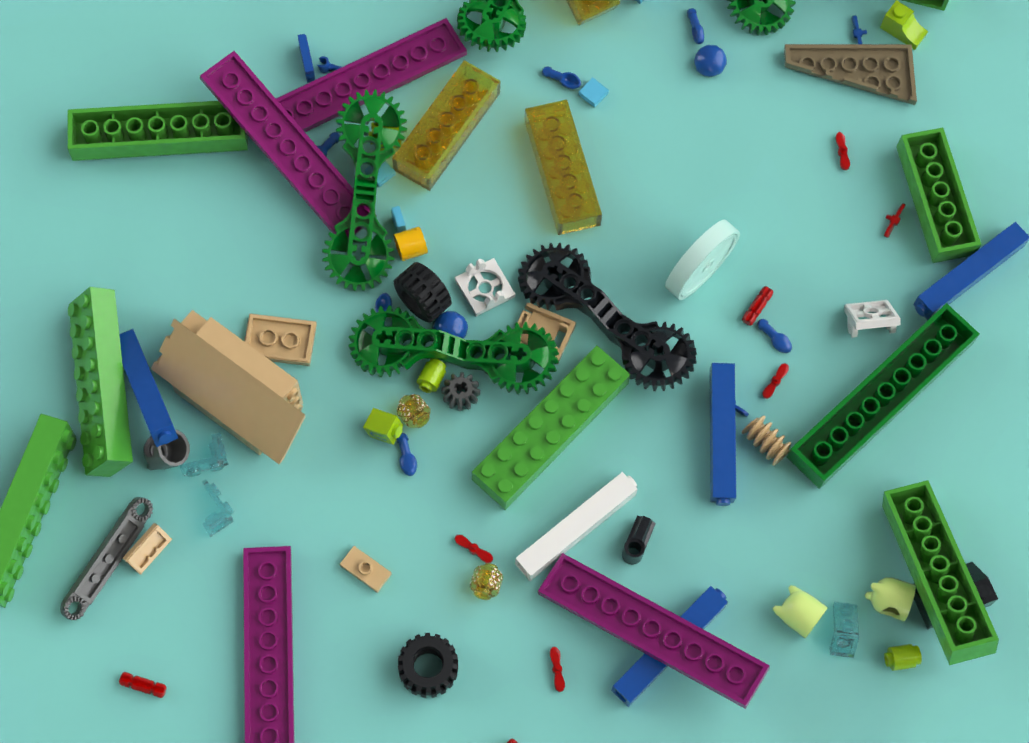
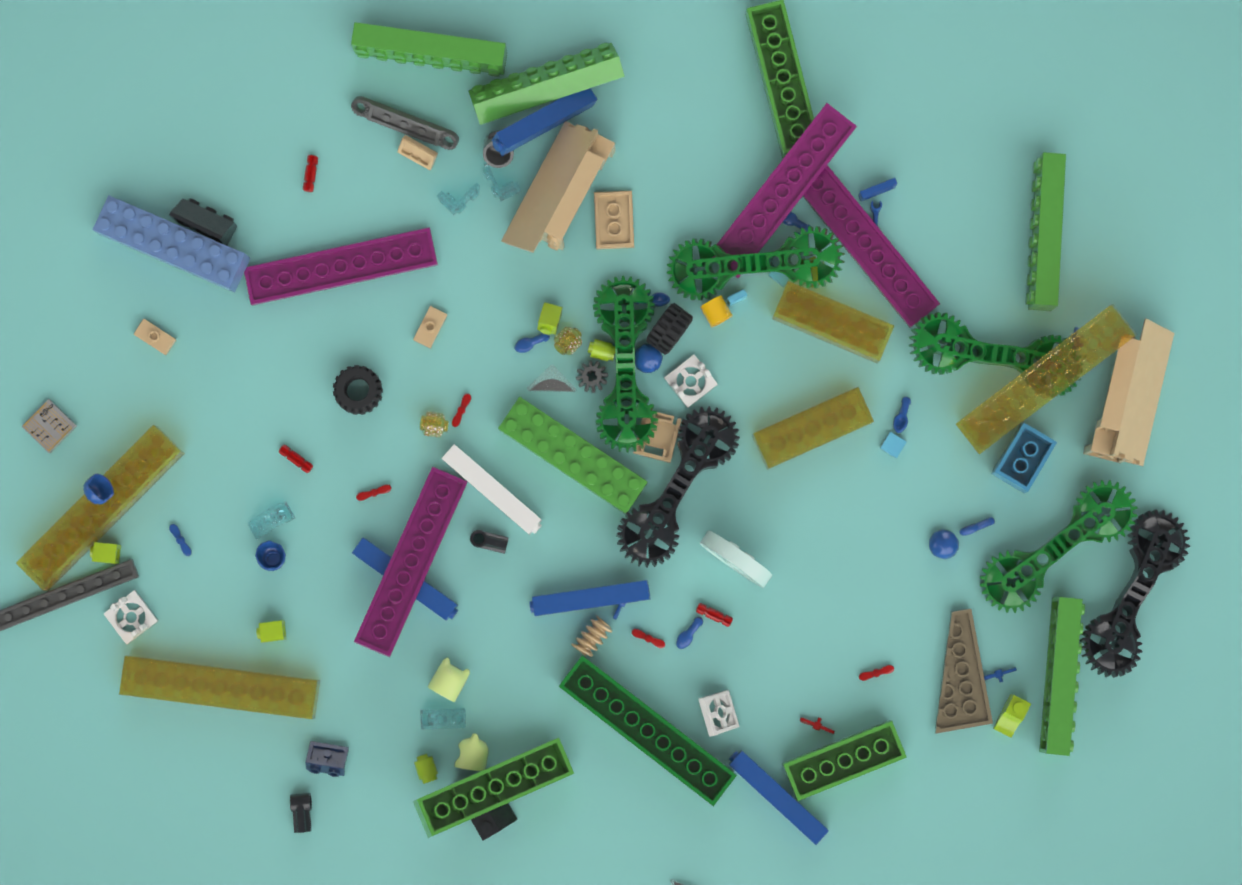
camera: 85 degrees right, 15 degrees up
(457, 439) = (551, 381): none -> clear tile

